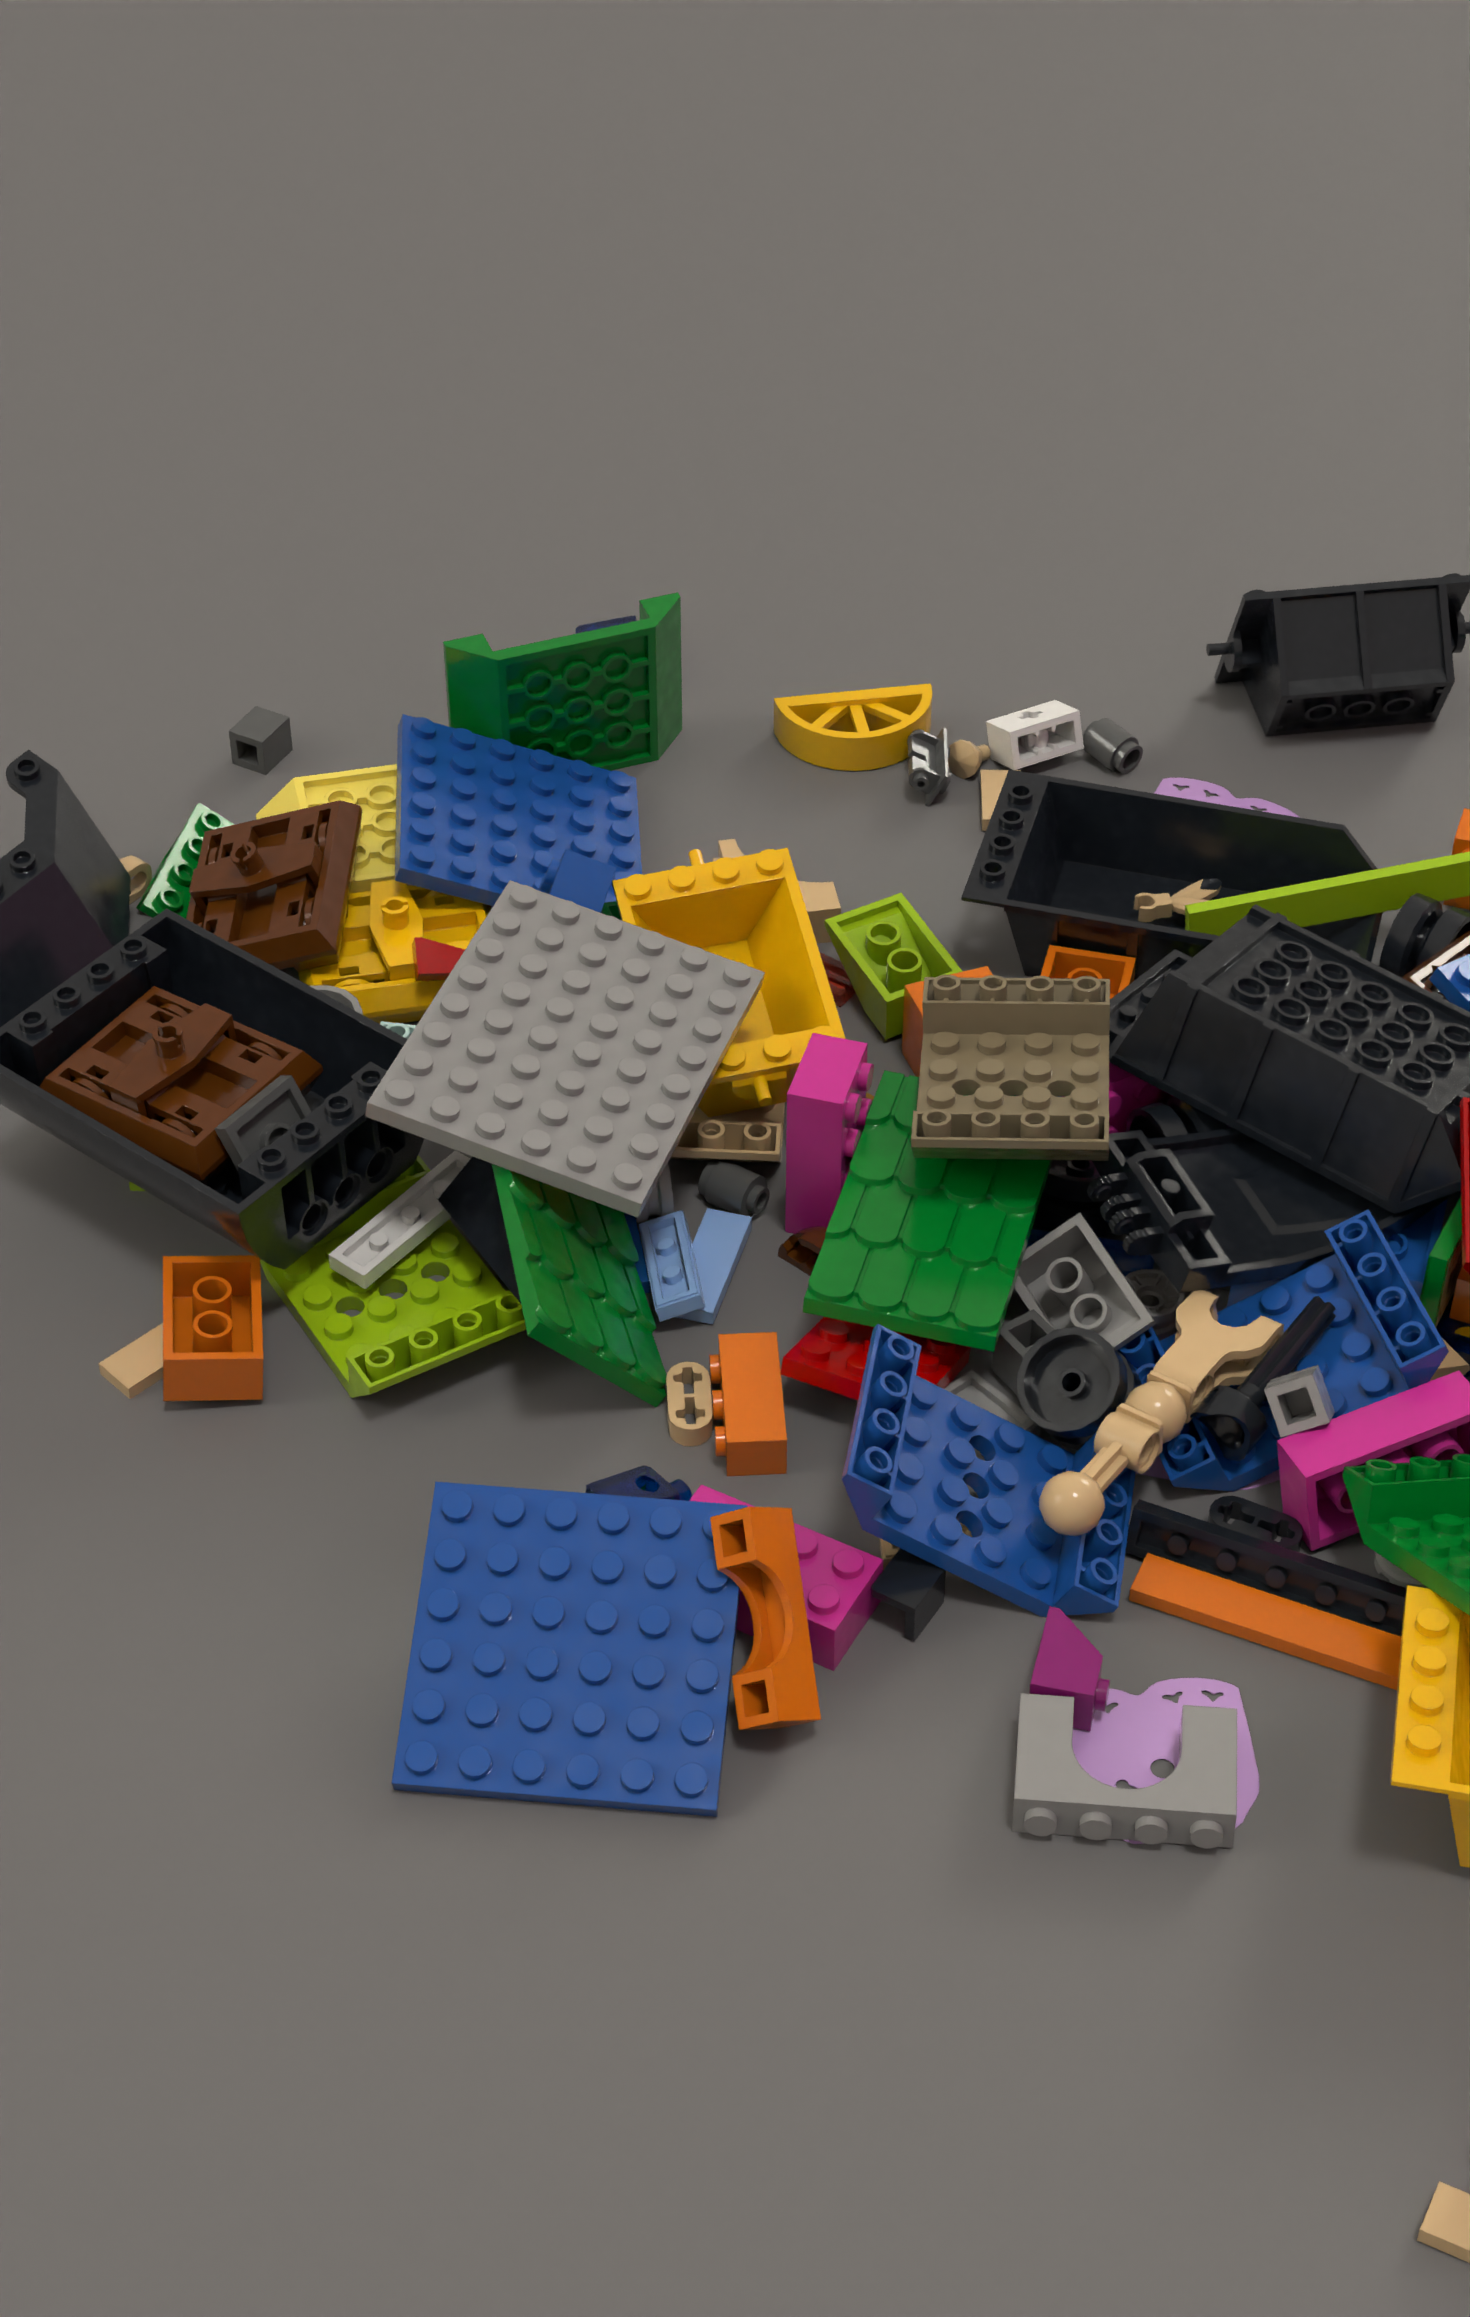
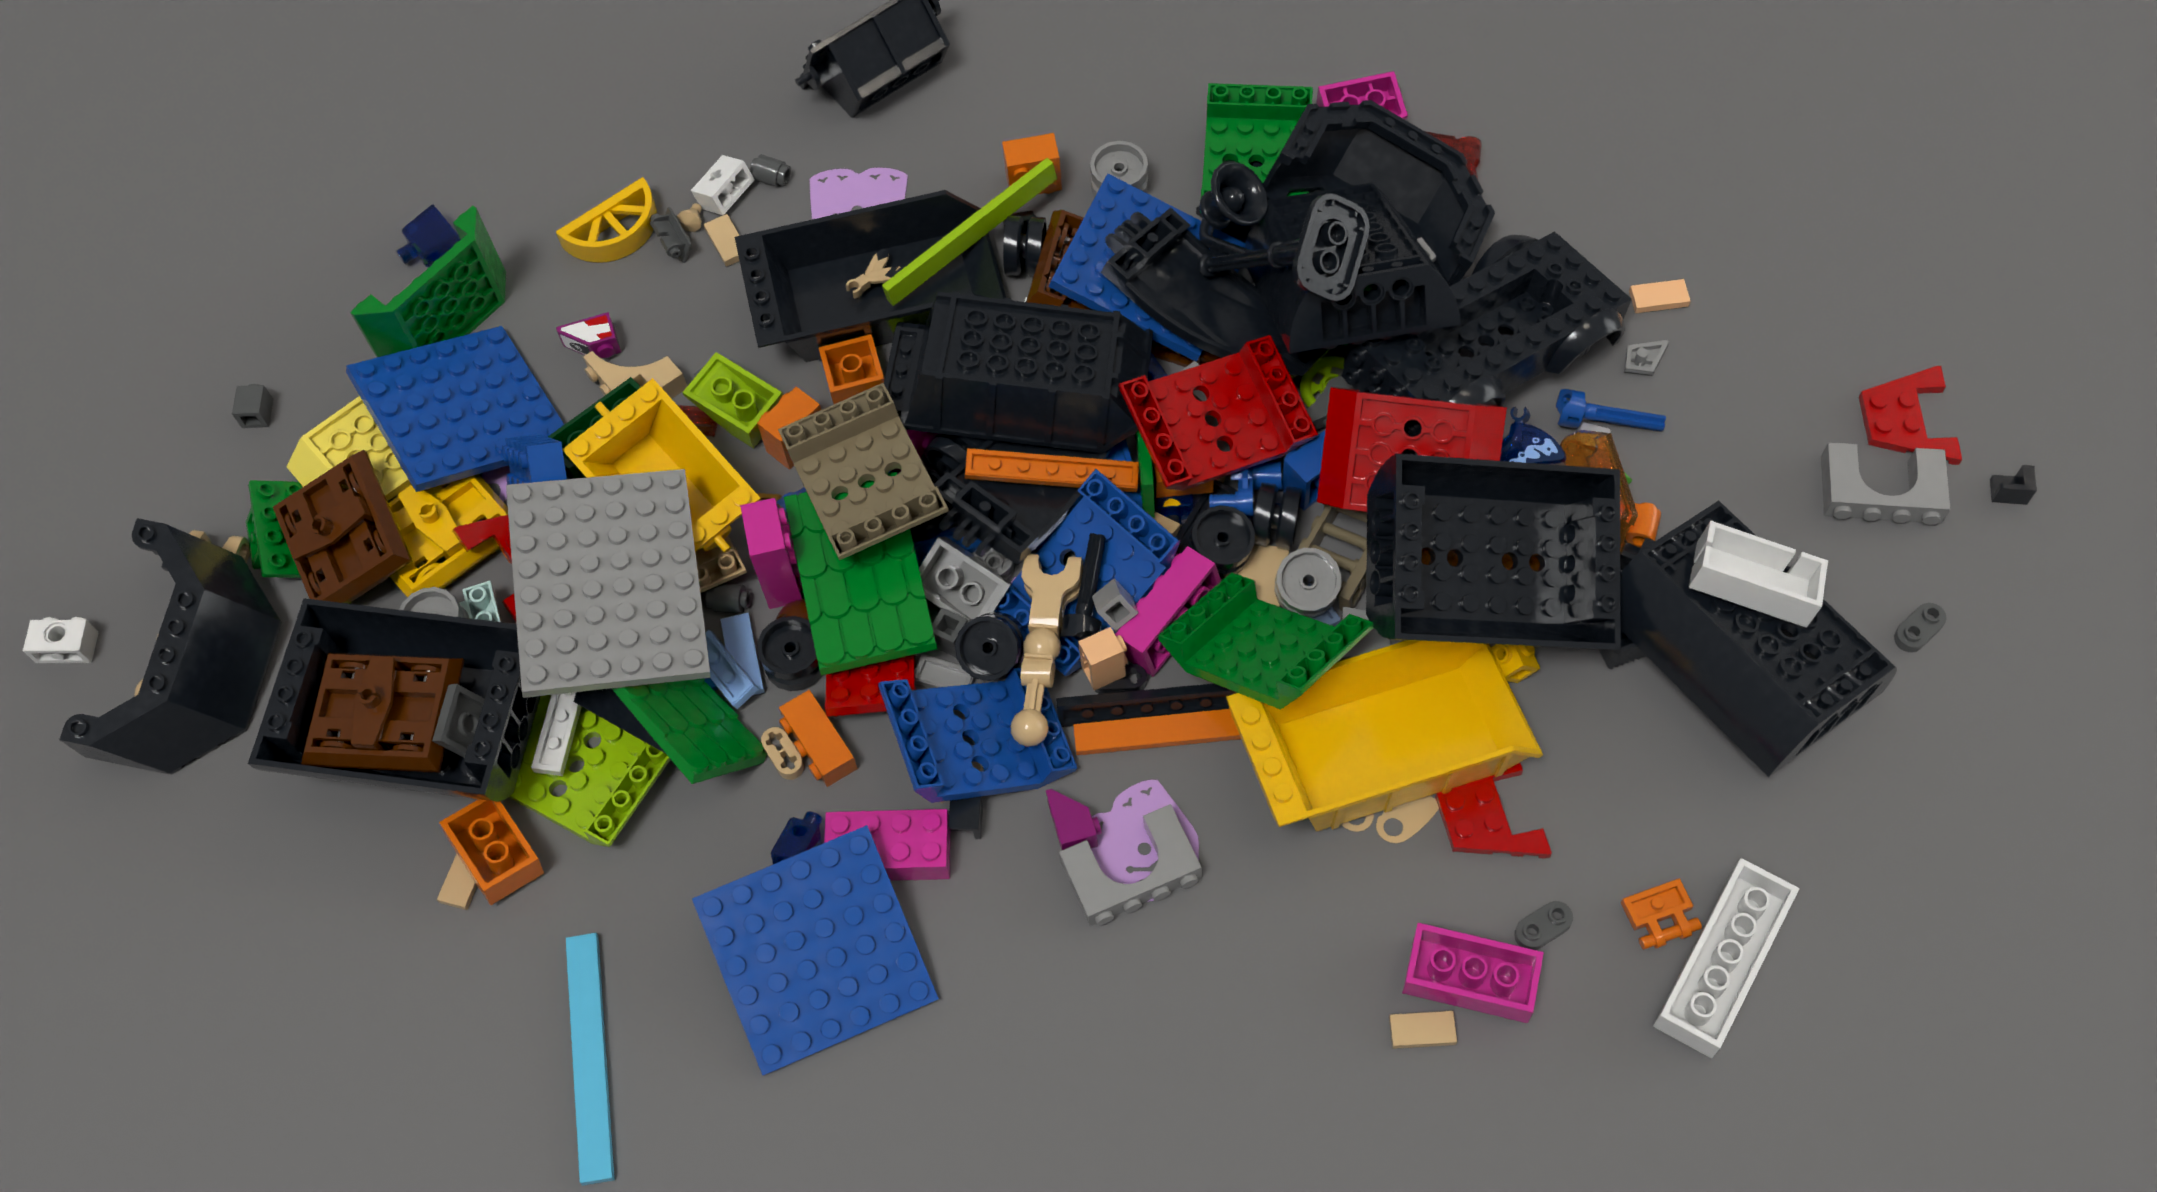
camera: 25 degrees left, 20 degrees up
(162, 1652) = (589, 1060): none -> medium azure tile
(749, 823) = (590, 335): none -> slope
(761, 1557) = (932, 910): orange arch -> none
(770, 1279) = (789, 653): none -> black wheel
(1242, 1470) = (1103, 658): none -> light nougat brick
(1289, 1191) = (1047, 469): none -> orange tile

